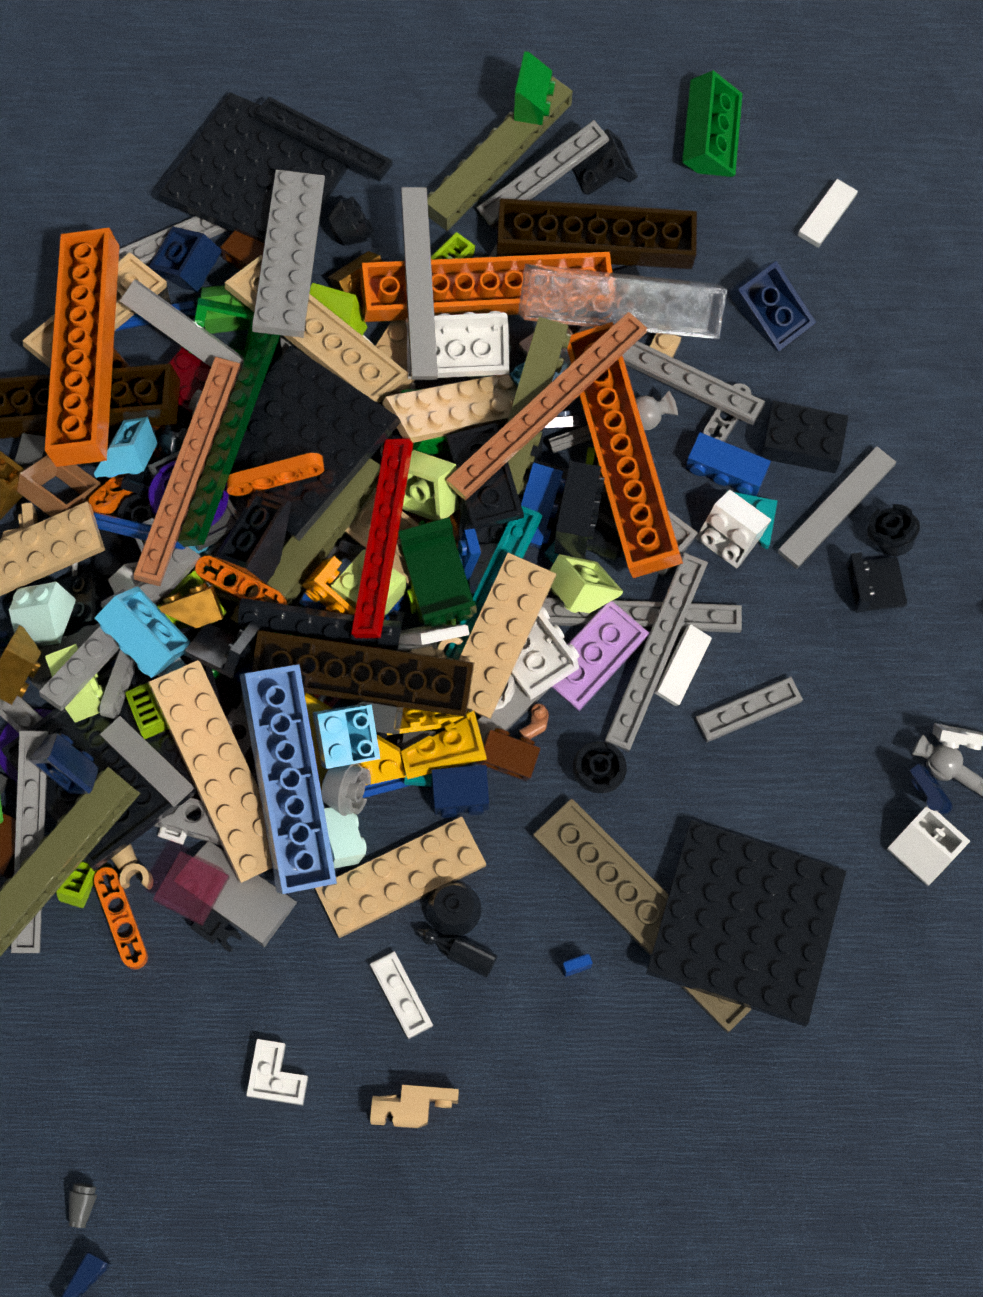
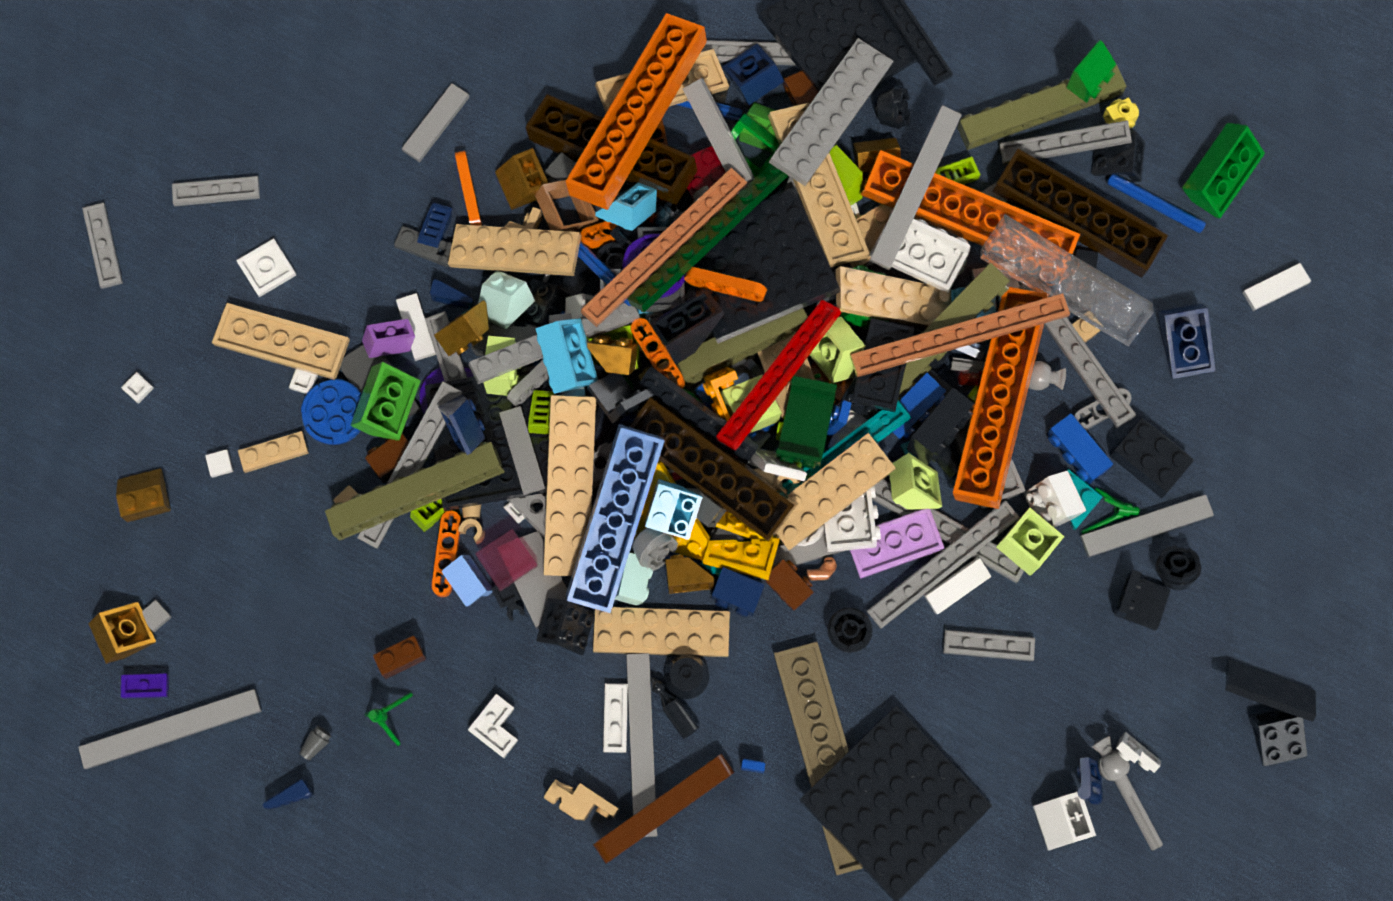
camera: 30 degrees right, 5 degrees up
(128, 1057) = (399, 657): none -> reddish brown brick
(141, 1132) = (380, 716): none -> green plant
(158, 933) = (467, 579): none -> light blue panel
(293, 924) = (565, 625): none -> black bracket
(397, 801) = (686, 576): none -> pearl gold slope
(446, 1009) = (641, 732): none -> light grey tile
(506, 1063) = (663, 808): none -> reddish brown beam
(580, 449) = (970, 378): none -> clear red pin
(581, 116) = (1120, 111): none -> light yellow brick
(665, 190) = (1156, 203): none -> blue axle
(732, 581) = (1030, 541): none -> yellowish green brick
(802, 504) = (1121, 509): none -> green plant

